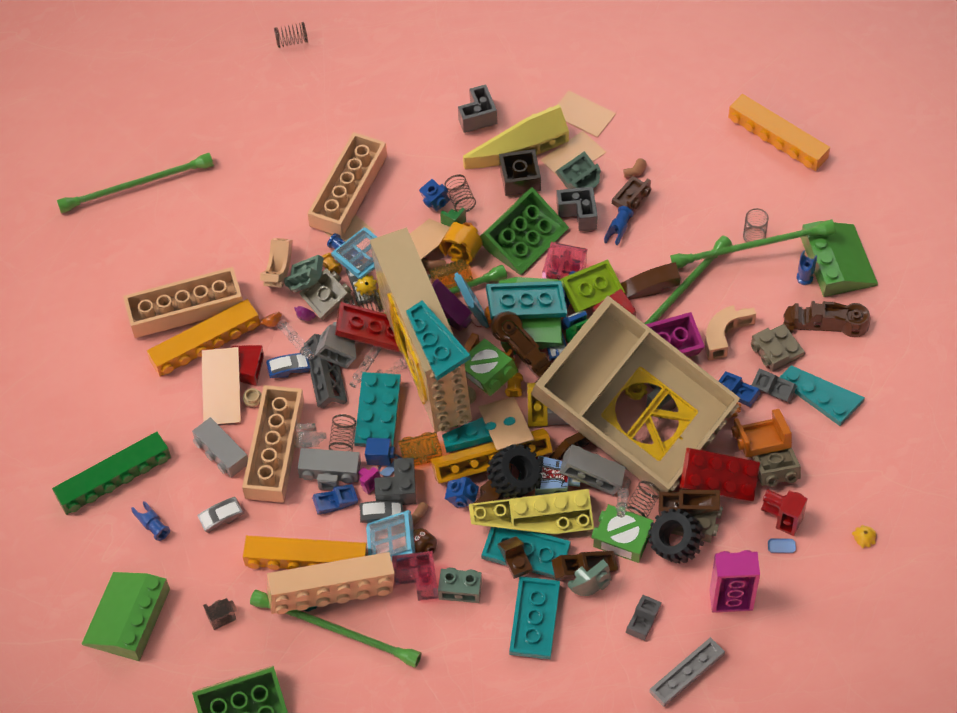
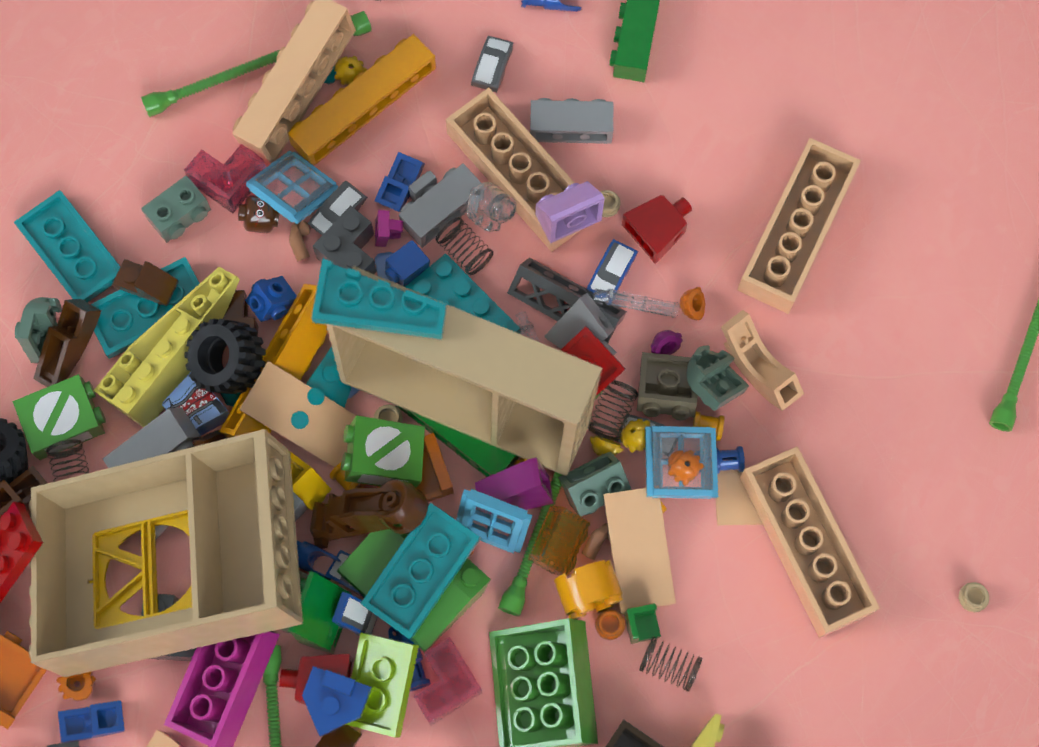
camera: 130 degrees right, 15 degrees up
(203, 336) = (732, 214): light orange brick -> none
(221, 385) = (647, 177): light nougat piece -> none
(281, 382) = (570, 210): none -> lavender slope
(307, 115) = (973, 597): none -> tan plate
(362, 246) = (680, 470): none -> orange animal
(434, 195) = (695, 629): blue brick -> none
(620, 290) = (333, 699): none -> blue plate
(622, 499) = (84, 441): clear piece -> none

